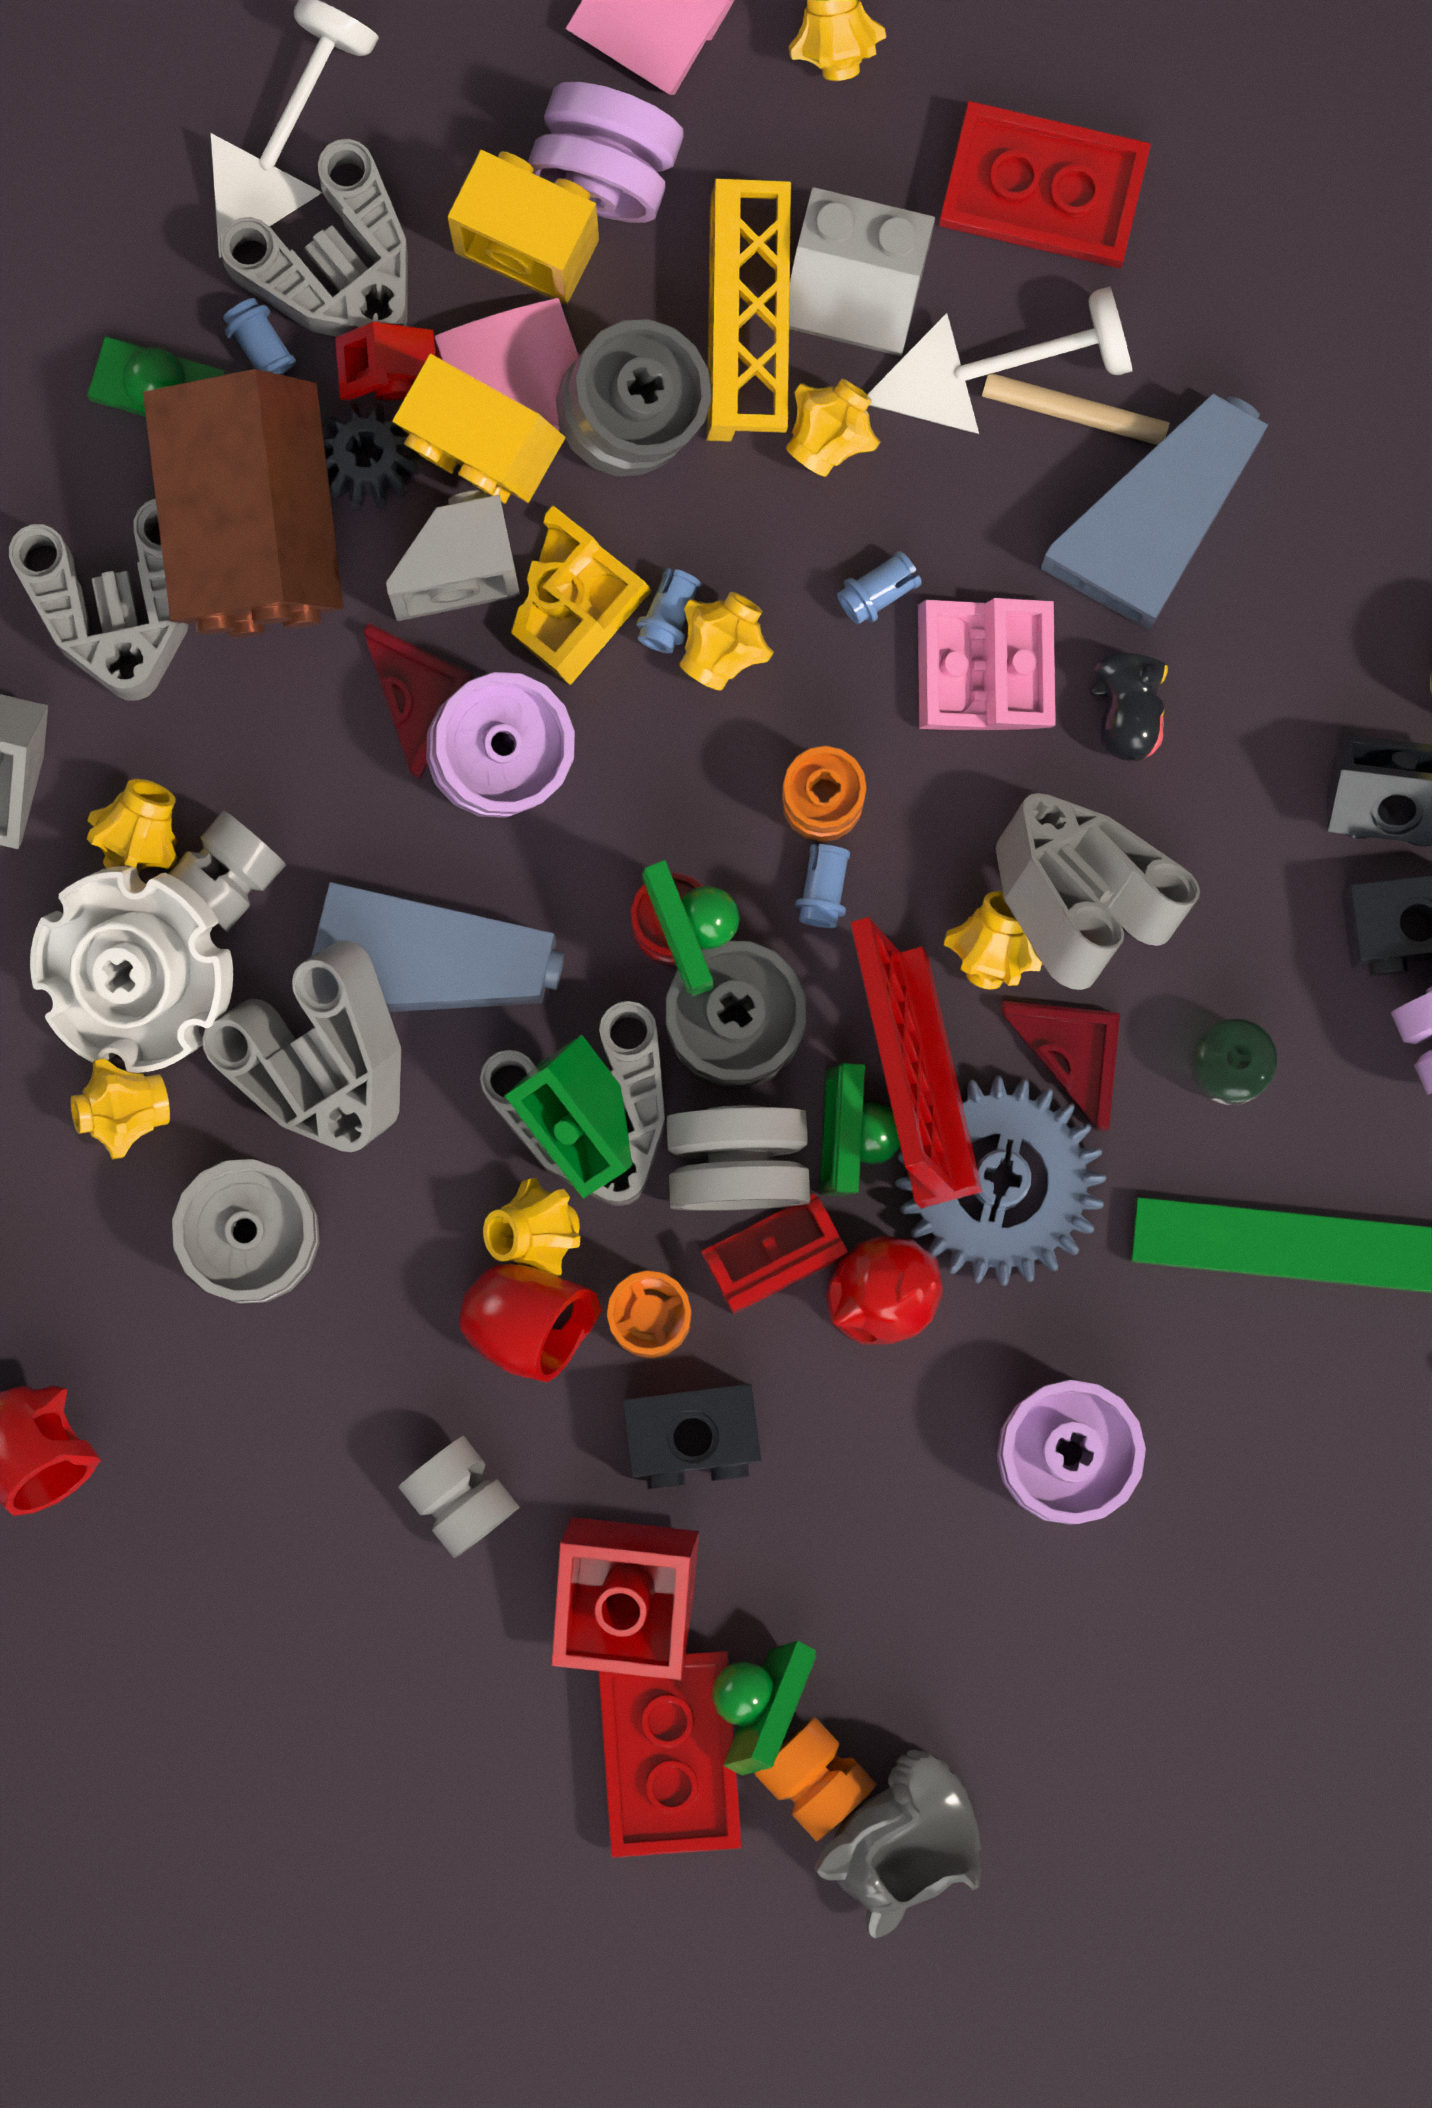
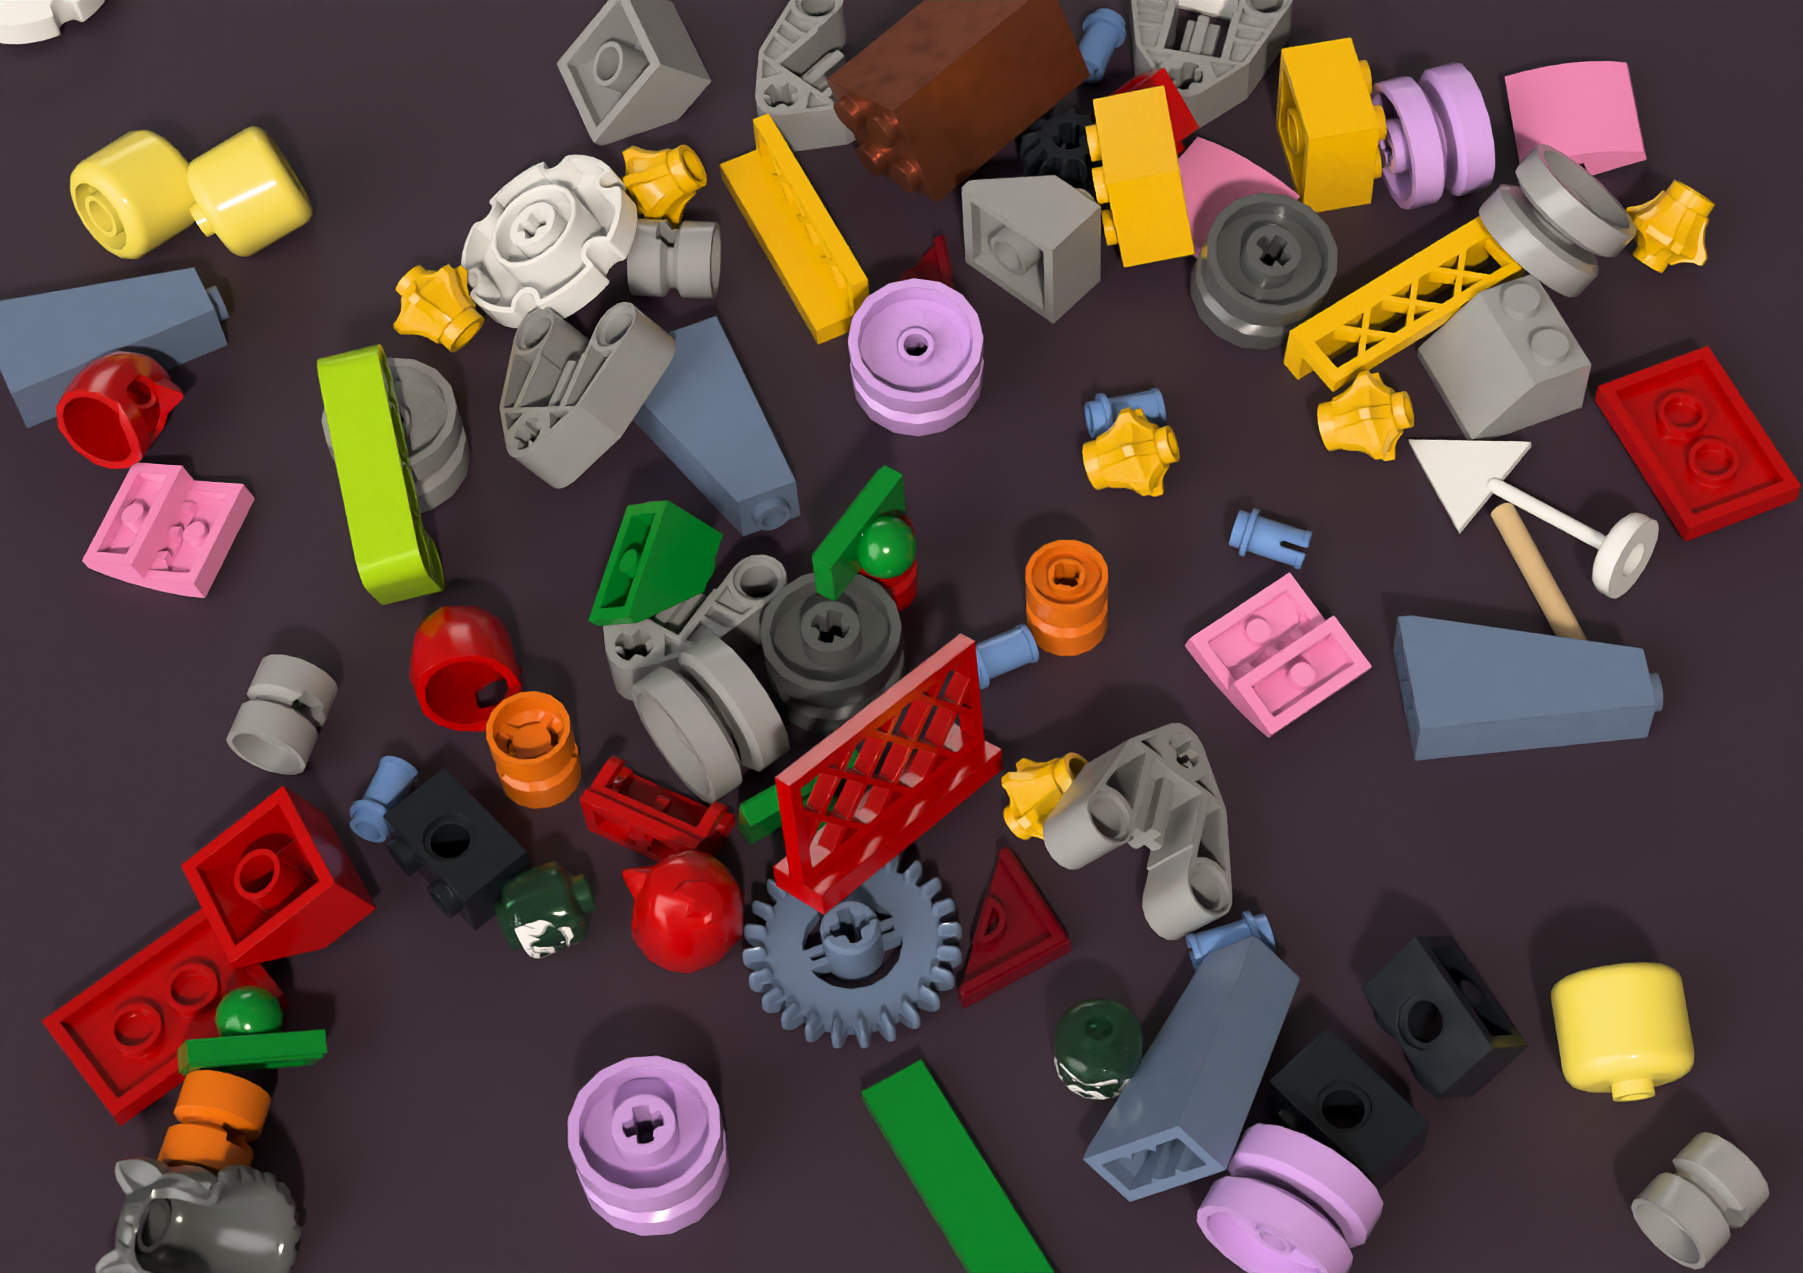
camera: 60 degrees right, 25 degrees down
(177, 1478) = (168, 530): none -> bright pink slope
(269, 747) = (796, 233): none -> yellow fence
(305, 1280) = (376, 477): none -> lime beam
(533, 1228) = (545, 625): yellow rock -> none
(574, 598) = (1076, 352): yellow slope -> none
(595, 1462) = (385, 791): none -> medium blue pin
(778, 126) = (1557, 221): none -> light grey wheel
(801, 1399) = (545, 909): none -> clear green head
(1134, 712) = (1337, 775): black animal -> none
(1216, 883) = (1224, 935): none -> medium blue pin
(1325, 1015) = (1198, 1075): none -> sand blue slope

